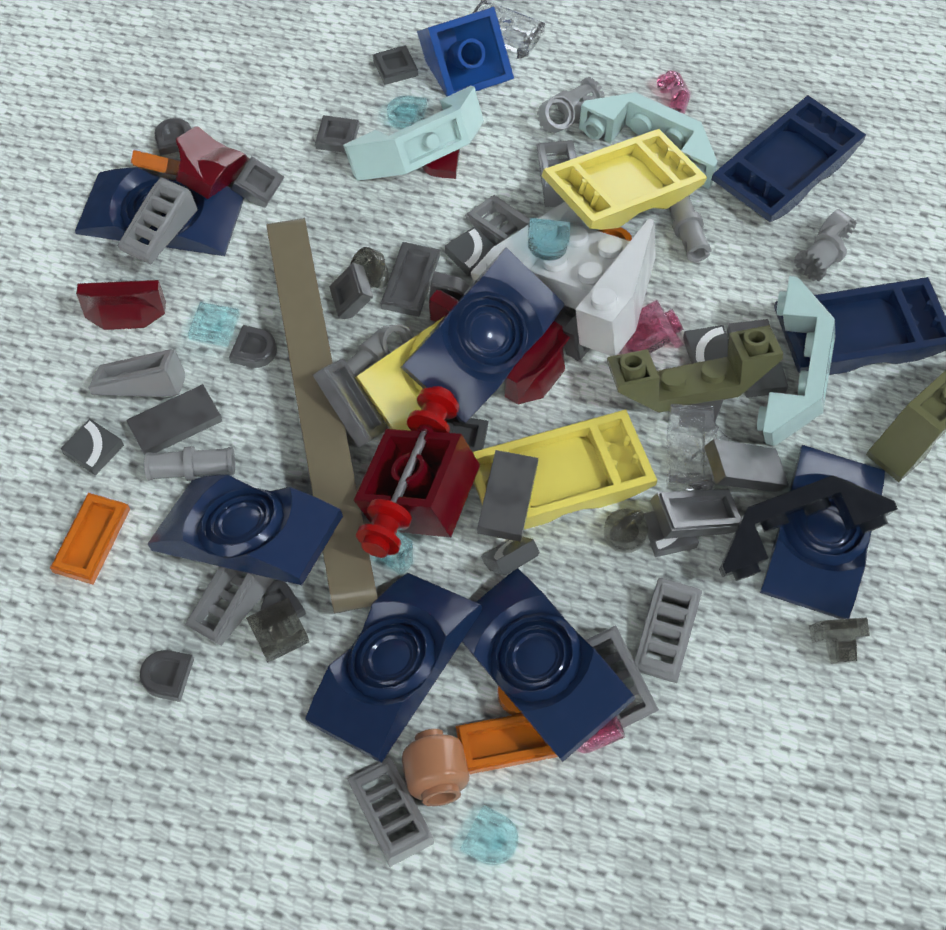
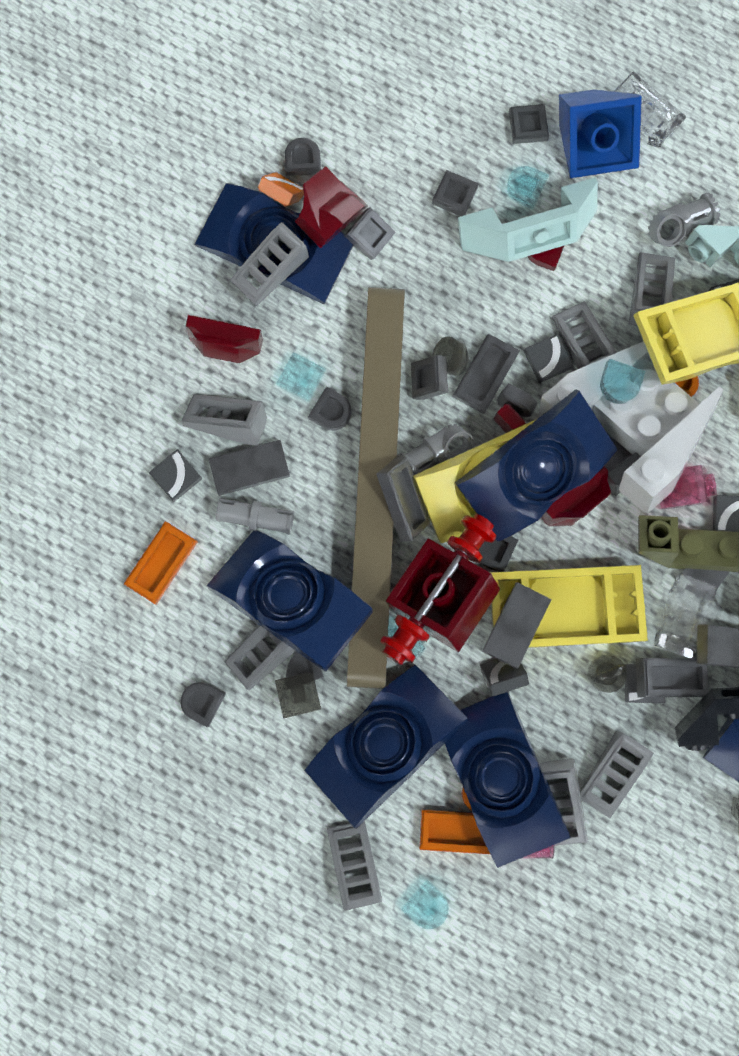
camera: 10 degrees right, 20 degrees up
(435, 768) = (397, 844): nougat head -> none

